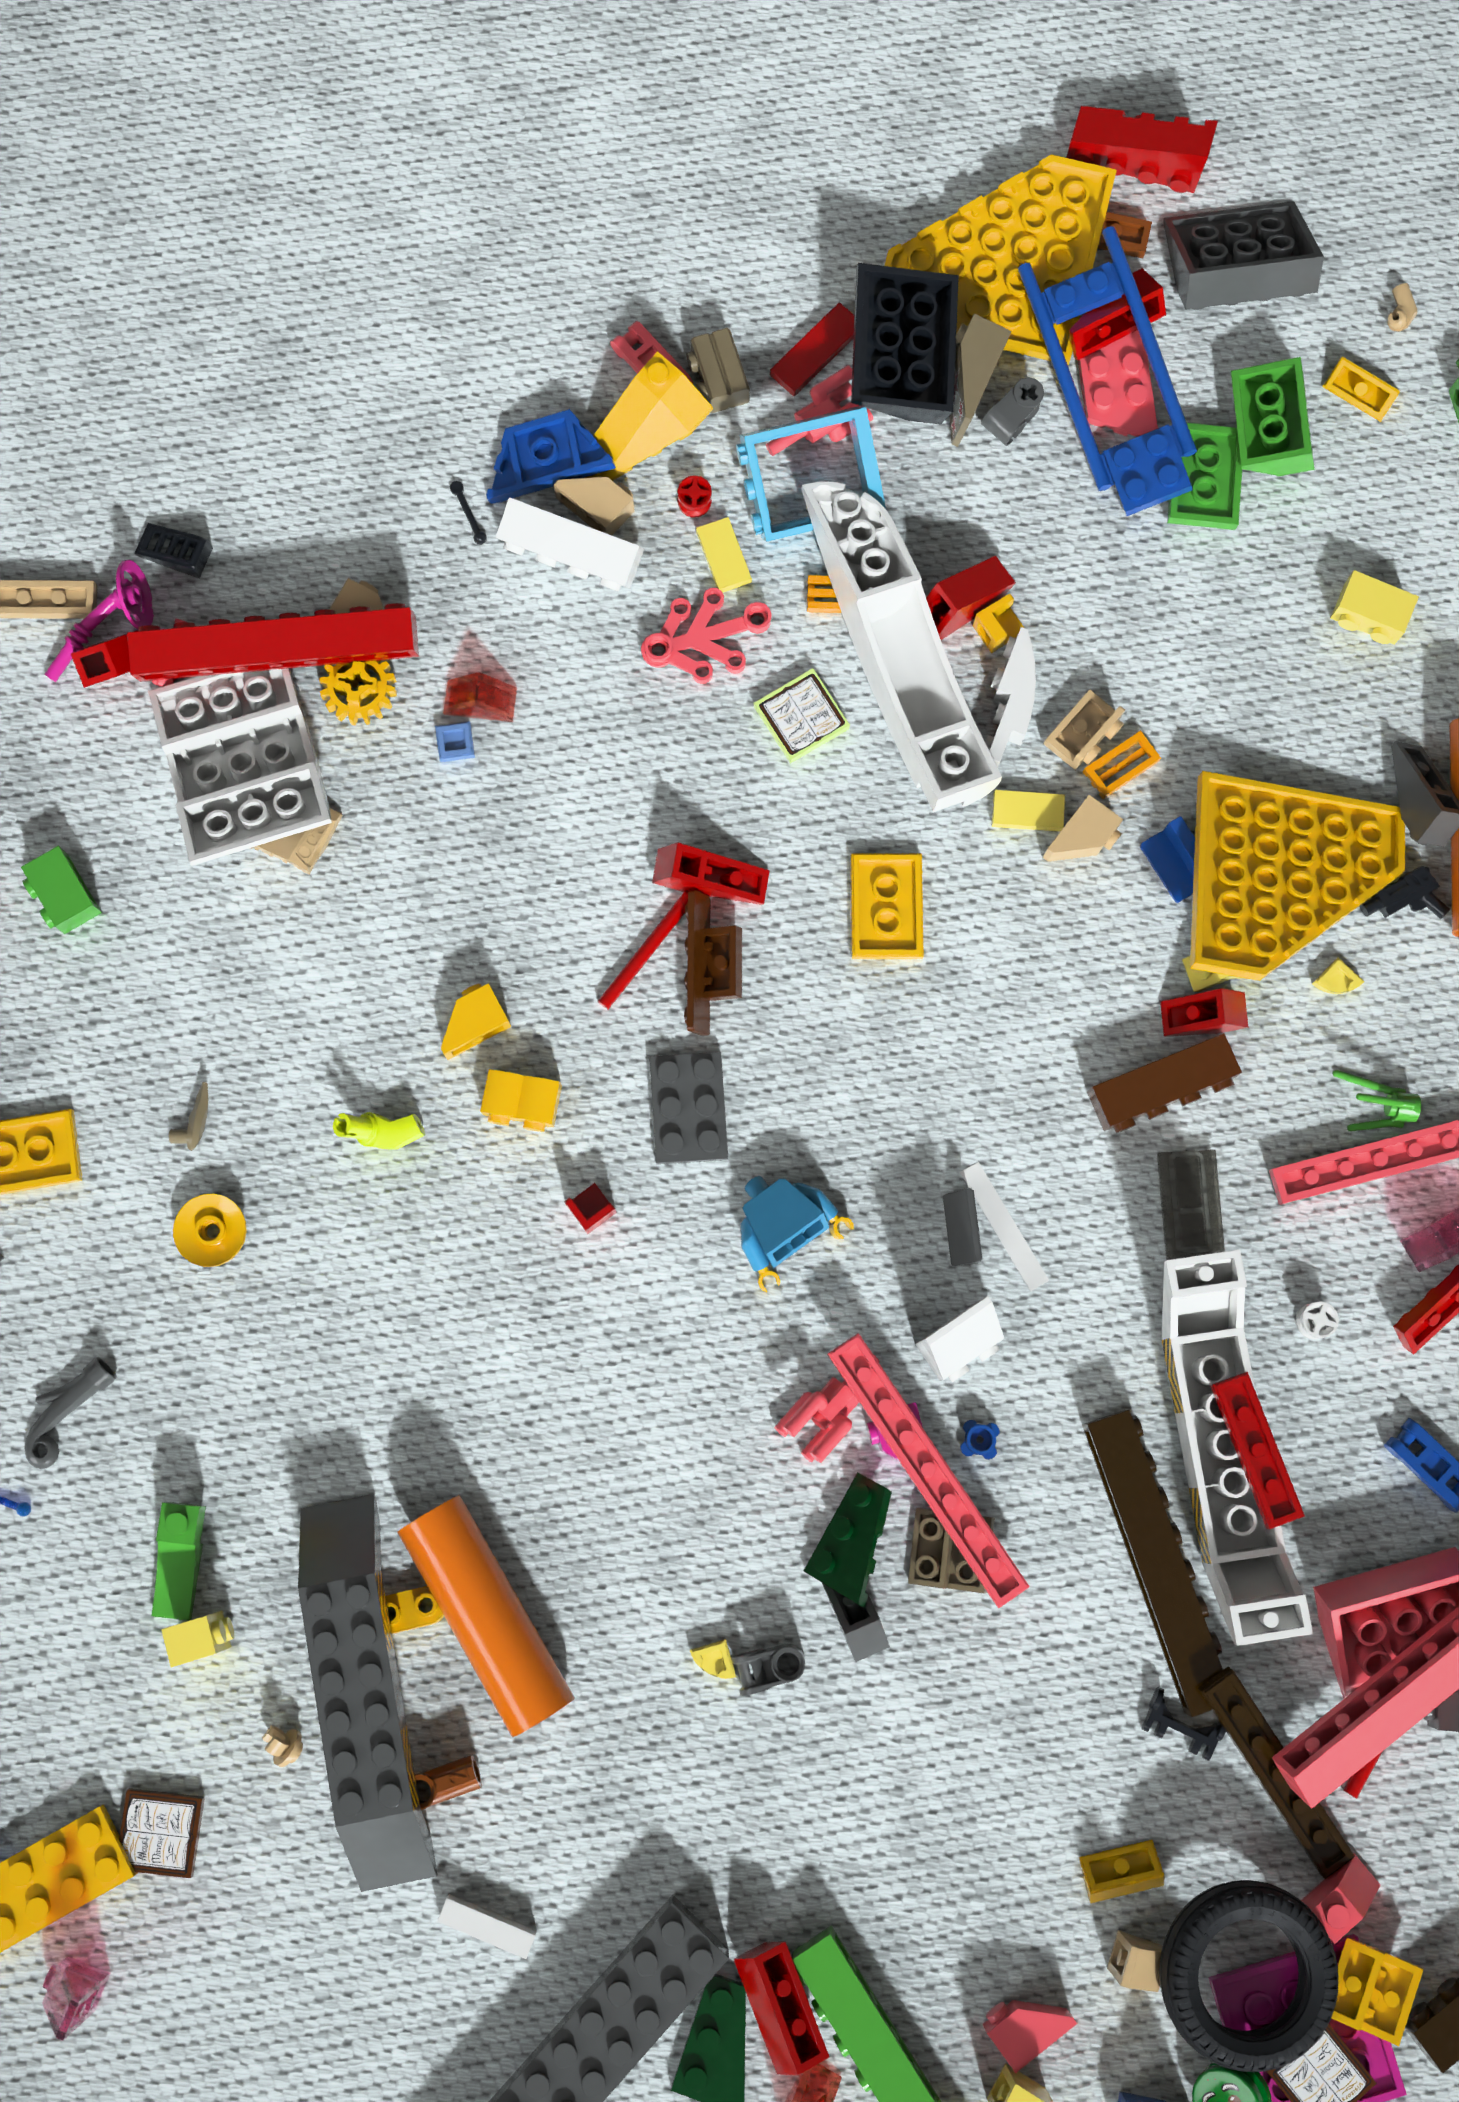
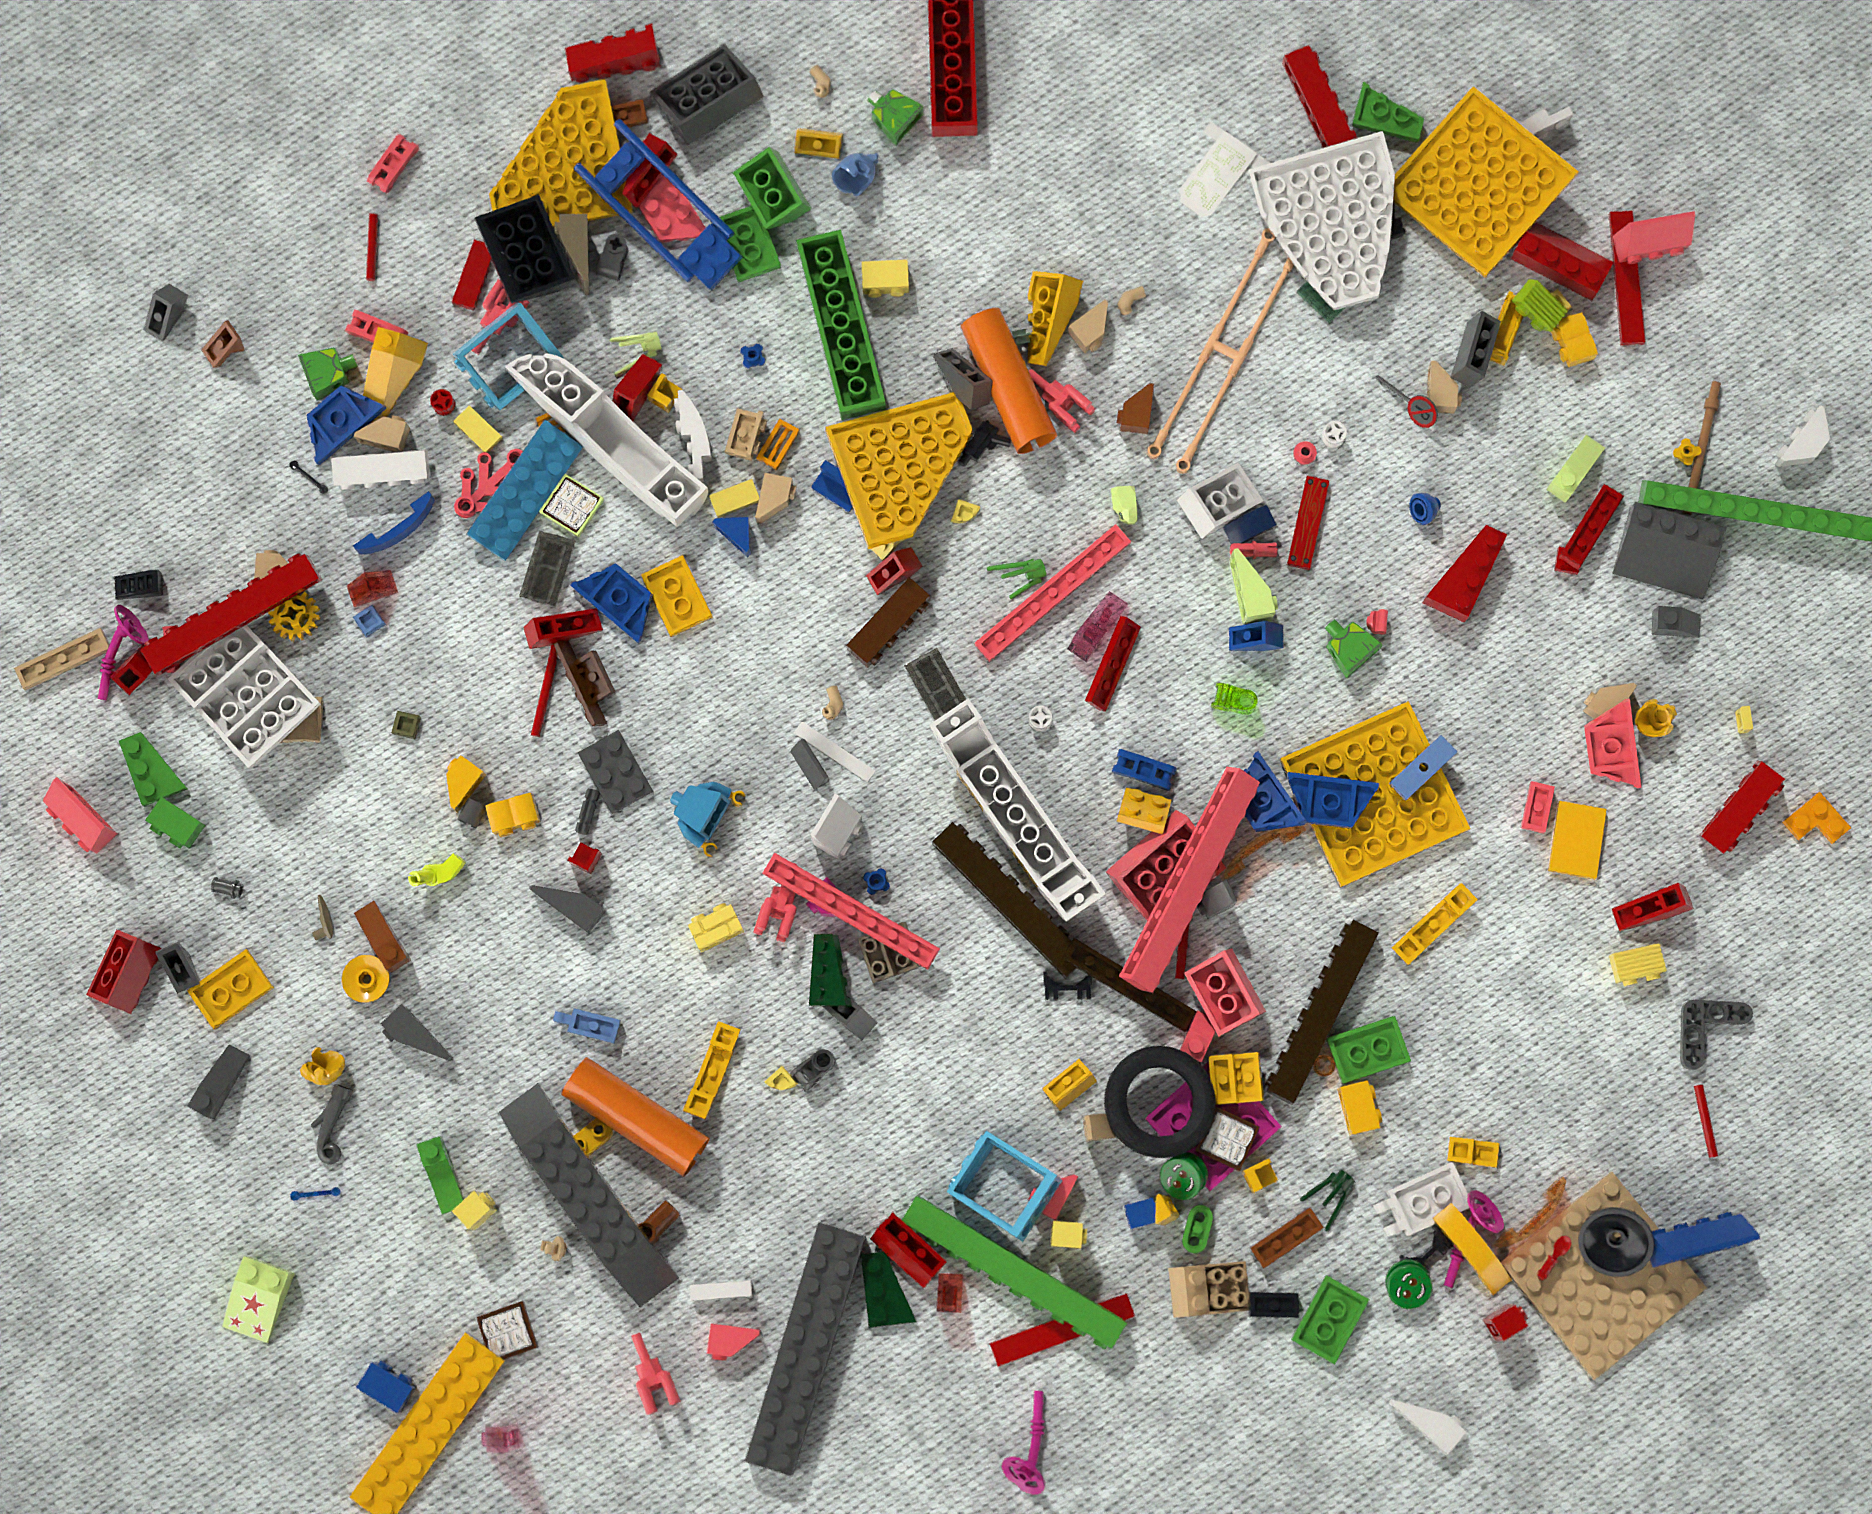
camera: 20 degrees left, 0 degrees up
(63, 802) = (149, 771): none -> bright green wing
(93, 1017) = (227, 887): none -> dark grey pin
(93, 1327) = (324, 1067): none -> yellow hair
(234, 1335) = (408, 1030): none -> dark grey slope
(260, 1183) = (382, 937): none -> dark orange slope
(328, 2012) = (652, 1378): none -> coral plant
(386, 207) = (165, 310): none -> dark grey slope
(435, 906) = (406, 724): none -> olive tile
(440, 284) = (222, 344): none -> dark orange slope
(465, 1070) = (471, 813): none -> dark grey beam
(465, 2008) = (729, 1340): none -> coral slope
(485, 1448) = (590, 1025): none -> medium blue plate
(544, 1271) = (575, 906): none -> dark grey slope
(553, 642) = (371, 544): none -> blue slope
(559, 382) = (326, 370): none -> bright green torso
(623, 1599) = (712, 1070): none -> yellow slope
(624, 1144) = (587, 811): none -> dark grey axle
(698, 251) = (372, 247): none -> red bar
(719, 370) = (420, 317): dark tan brick -> none
(725, 1395) = (715, 927): none -> light yellow brick
(728, 785) = (547, 568): none -> clear smoke piece
(748, 664) = (524, 490): none -> dark azure plate
(778, 155) = (392, 163): none -> coral plate
(805, 871) = (618, 598): none -> blue wing
(927, 1923) = (1035, 1206): none -> medium azure window
(1009, 545) = (649, 342): none -> yellowish green plant
(1009, 856) = (736, 531): none -> blue slope
(1036, 1161) = (835, 704): none -> tan arm
(1139, 638) = (748, 360): none -> blue plate
(1257, 1450) = (1033, 808): red tile -> none
(1286, 643) = (841, 324): none -> bright green brick
(1396, 449) = (855, 173): none -> medium blue helmet
(1410, 1527) = (1144, 810): none -> yellow plate
(1411, 1853) = (1225, 992): none -> coral slope

